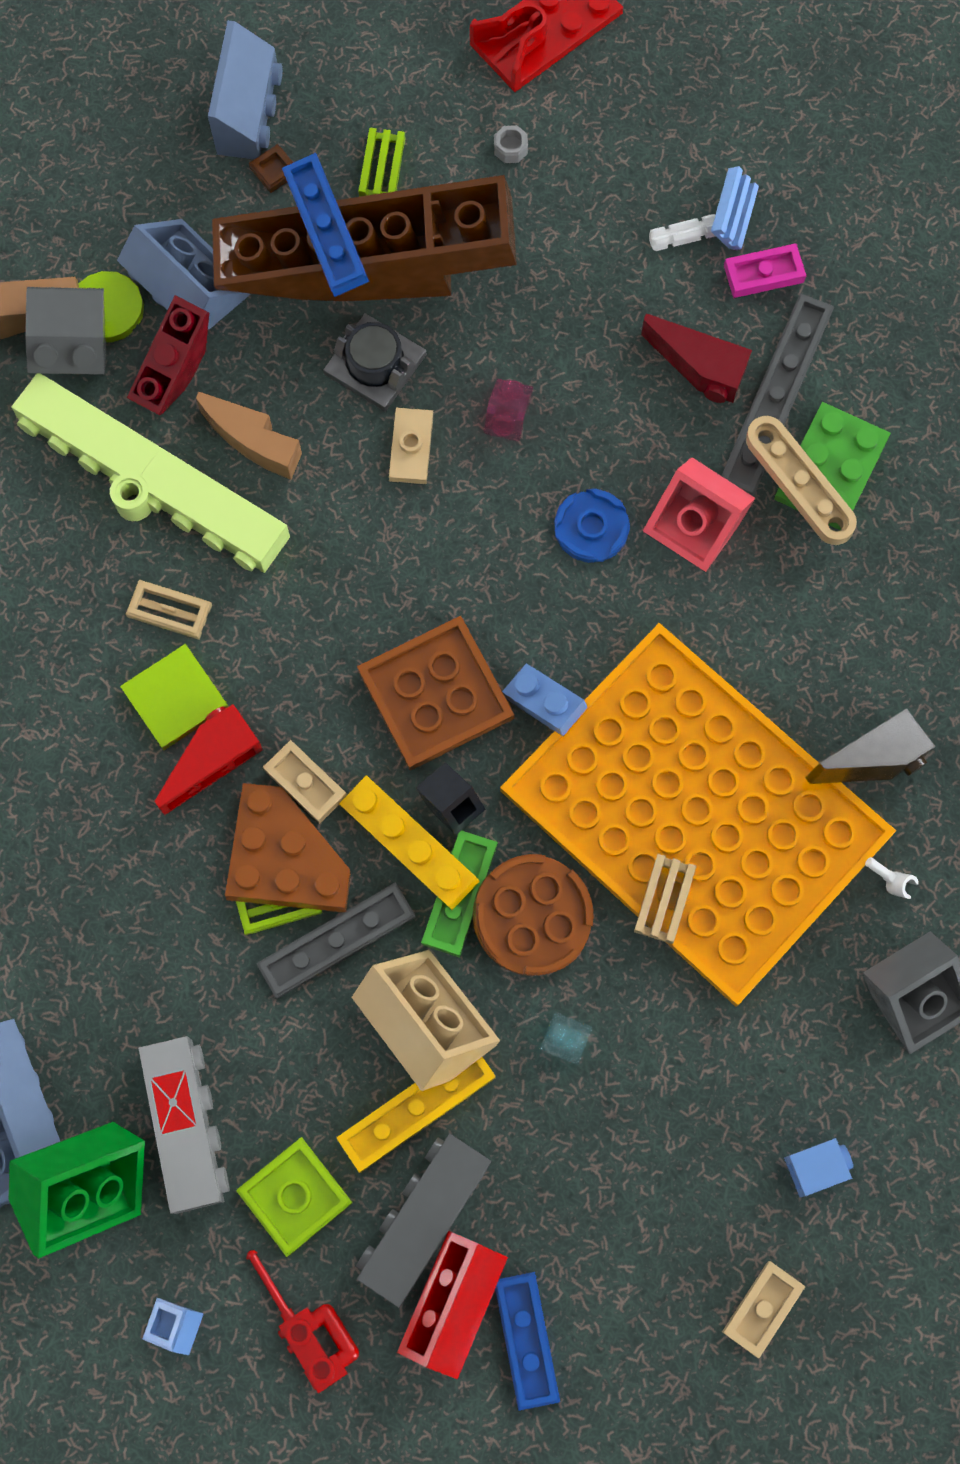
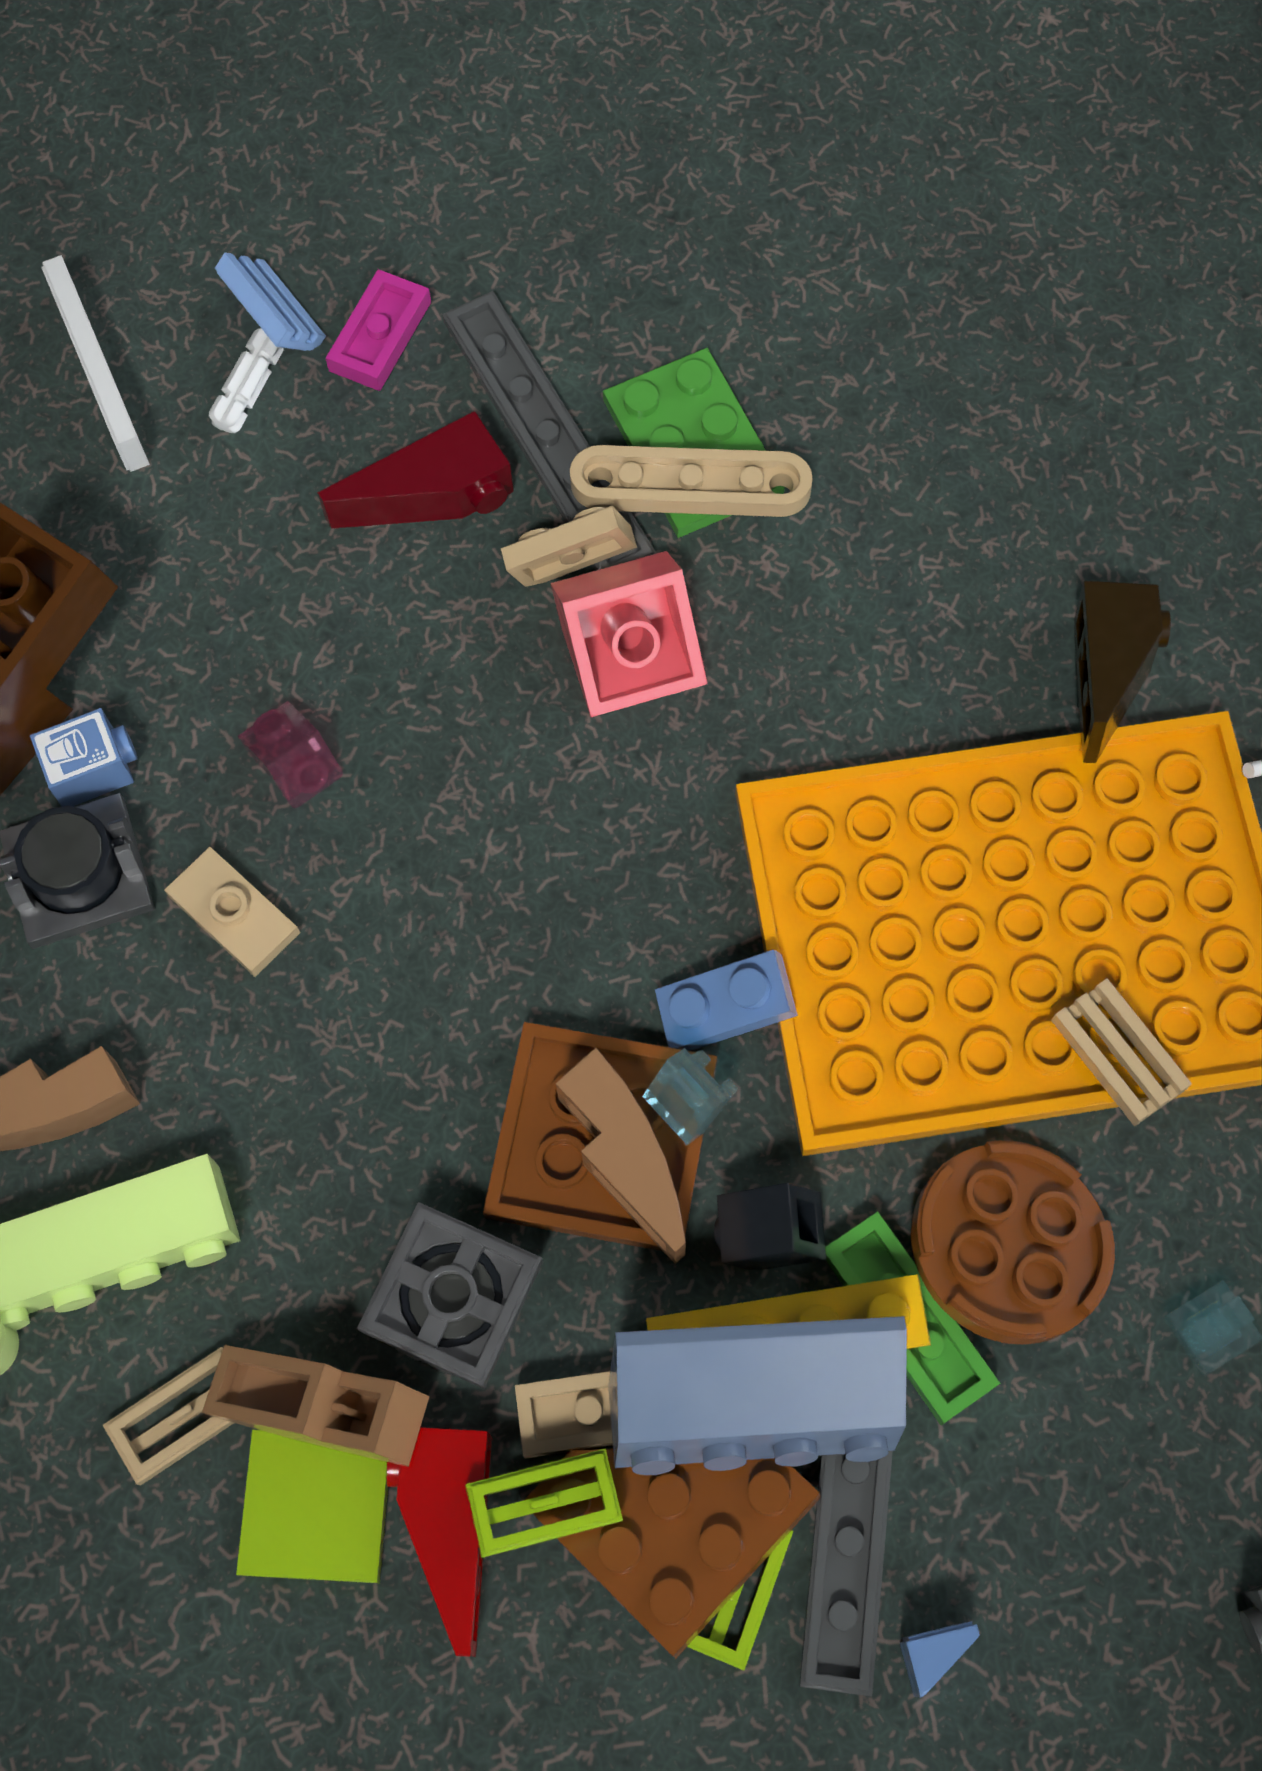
camera: 50 degrees left, 5 degrees down
(214, 660) = (317, 1404): none -> medium nougat slope
(273, 810) = (484, 1518): none -> lime tile
(307, 682) = (450, 1295): none -> flat silver piece
(314, 1010) = (934, 1653): none -> medium blue slope
(362, 843) = (758, 1393): none -> sand blue slope
(408, 1115) = (1175, 1614): yellow plate -> none
(424, 1018) = (1062, 1502): tan slope -> none
(428, 320) = (84, 757): none -> medium blue brick
(431, 705) = (624, 1150): none -> medium nougat slope
(480, 713) = (688, 1094): none -> clear light blue tile
(587, 536) = (535, 793): blue tile -> none
(631, 157) = (94, 364): none -> white tile
(708, 445) = (554, 552): none -> tan plate

